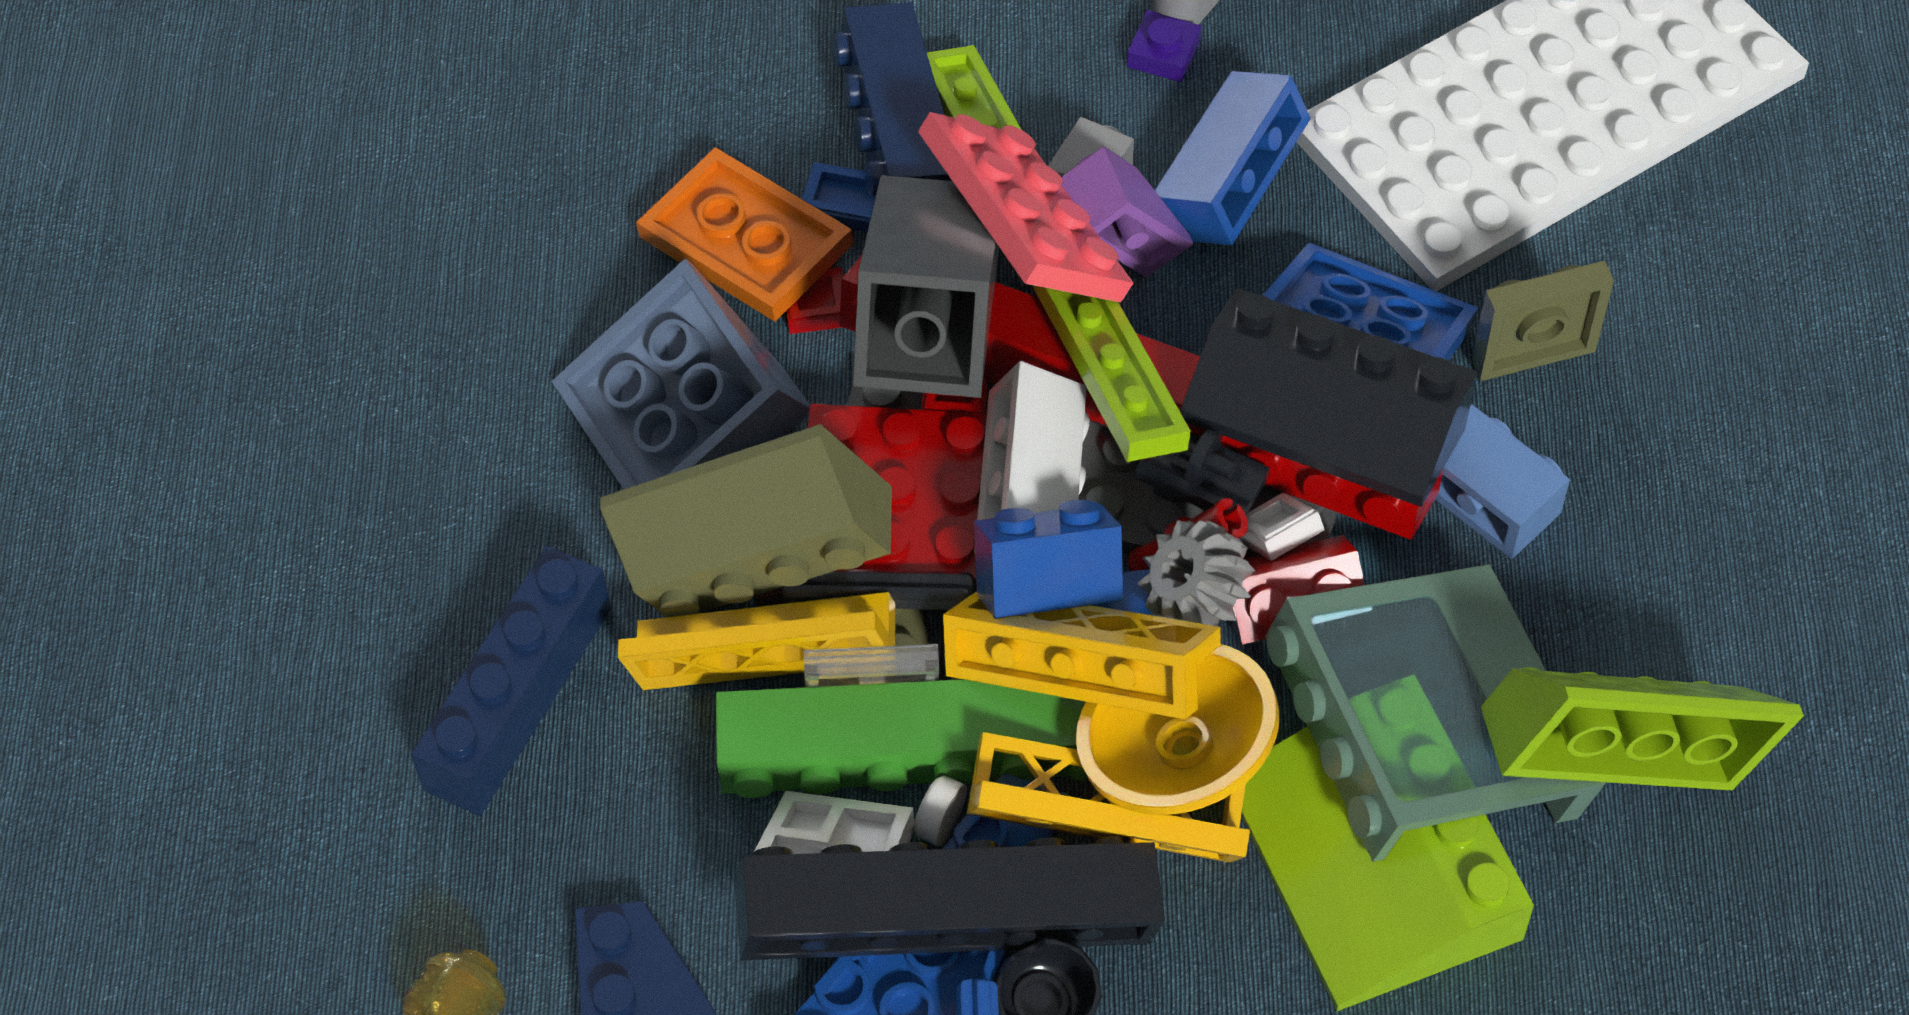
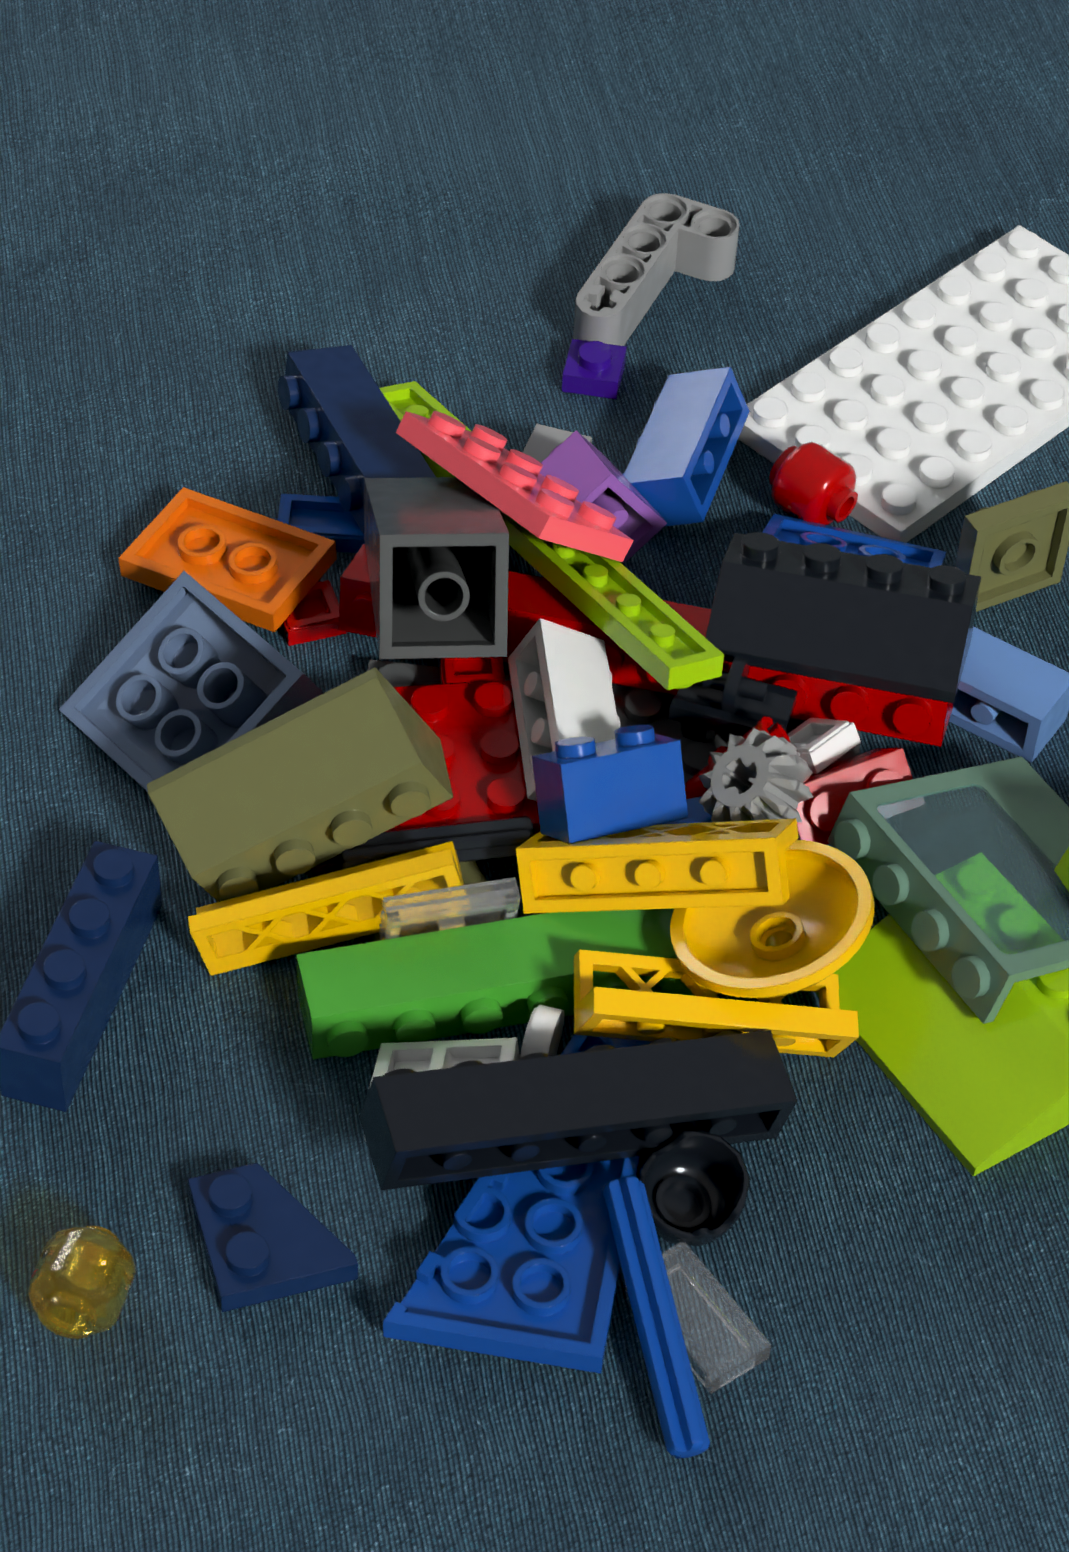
camera: 15 degrees left, 10 degrees down
(1355, 215) = (813, 484): none -> red head

